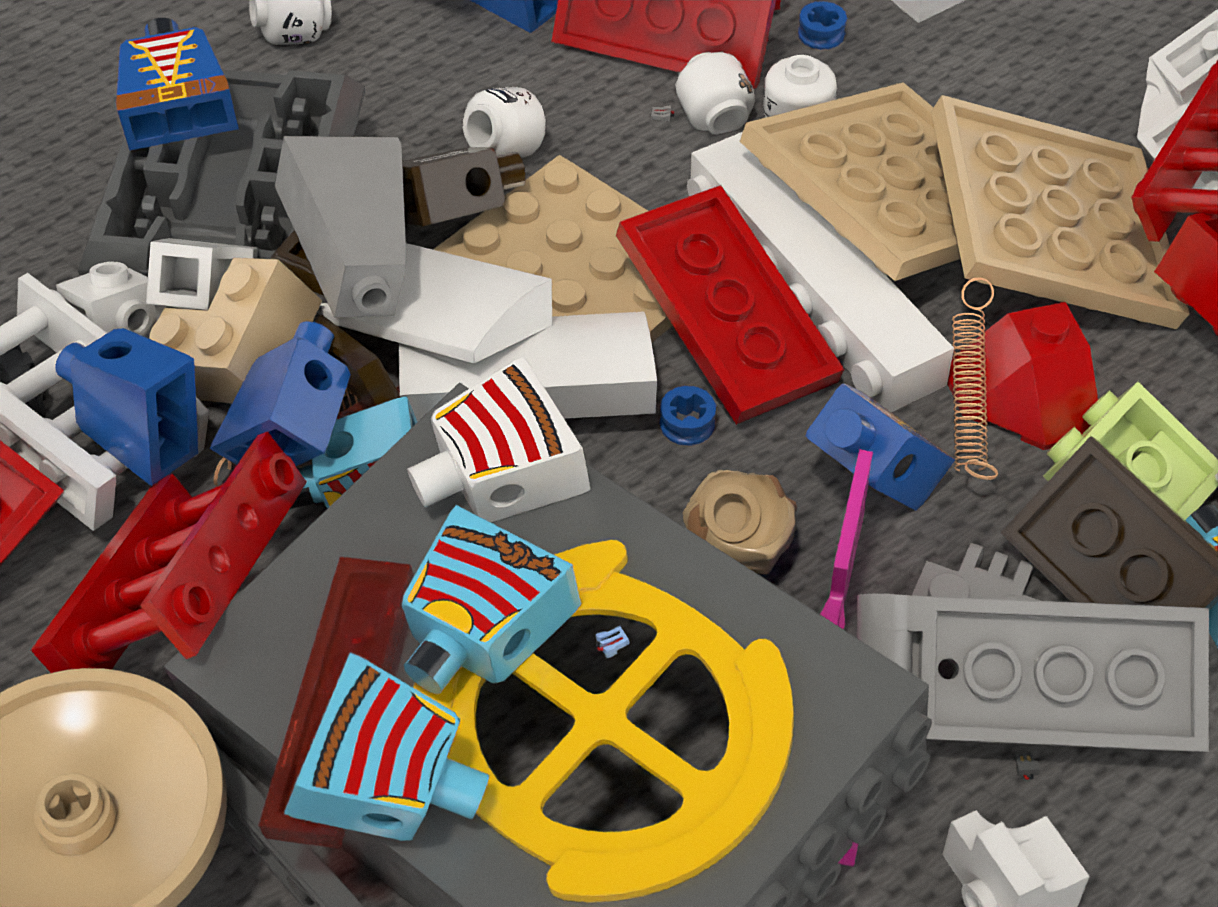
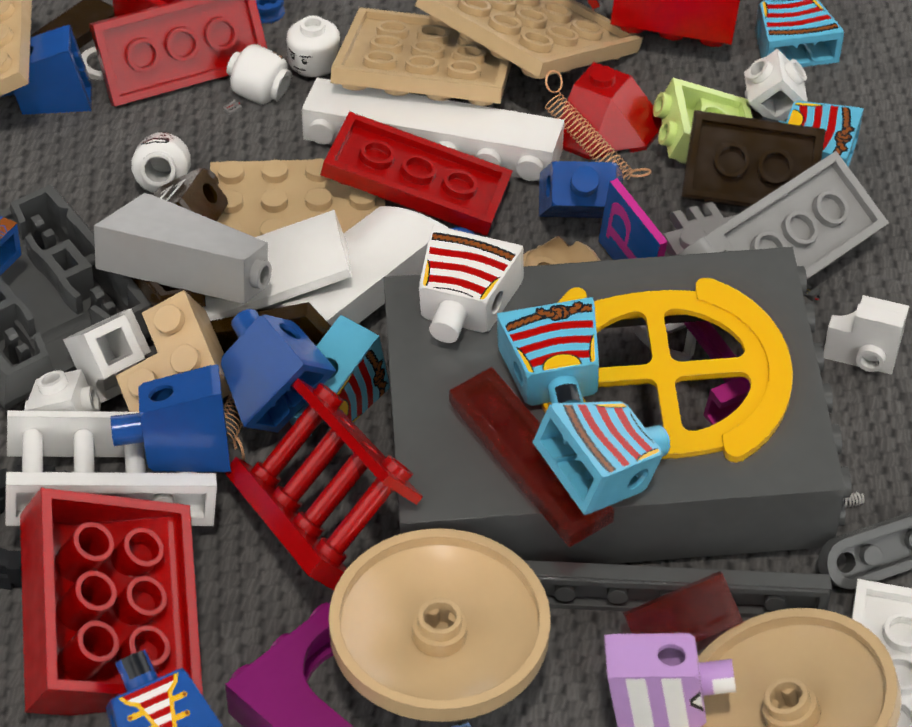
camera: 45 degrees left, 5 degrees down
(611, 641) = (631, 331): light blue piece -> none

